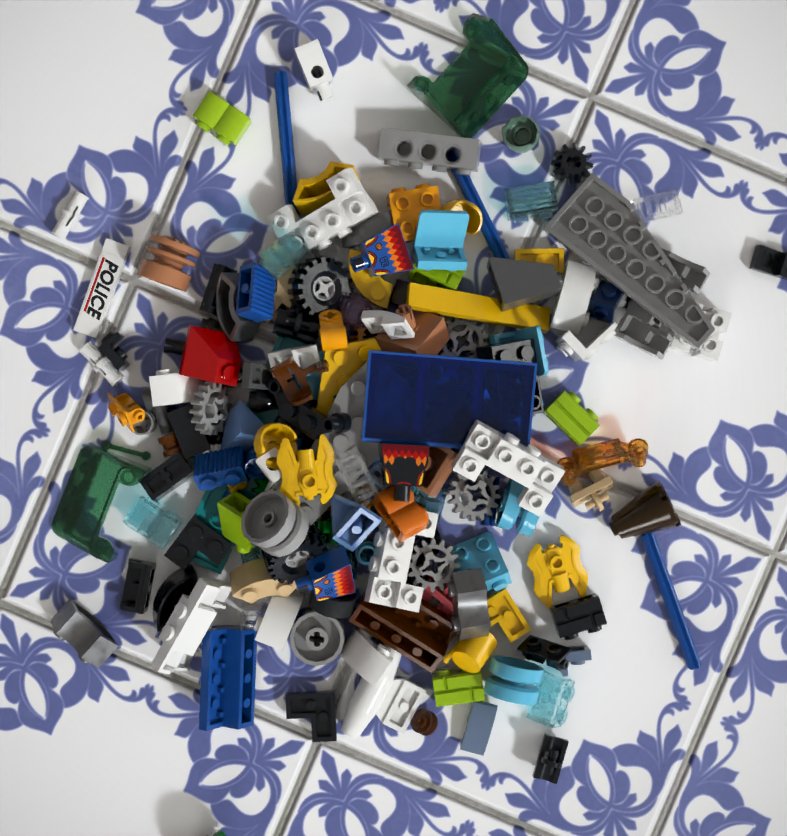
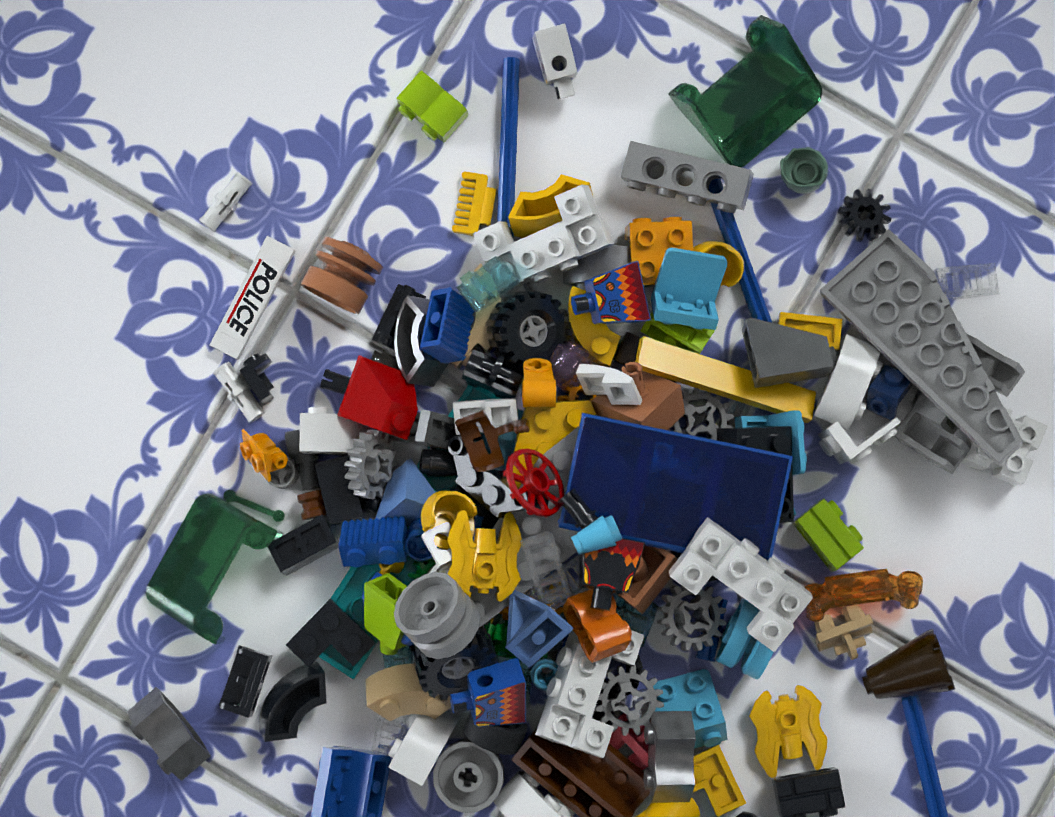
camera: 15 degrees right, 5 degrees down
(152, 521) = (276, 600): clear light blue brick -> none
(189, 625) = (307, 738): white bracket -> none
(271, 190) = (481, 207): none -> yellow piece
(338, 409) = (534, 482): none -> red wheel
(375, 426) = (578, 509): none -> black pin
(391, 446) = (597, 535): none -> medium azure cone
(530, 201) = (807, 255): clear light blue brick -> none

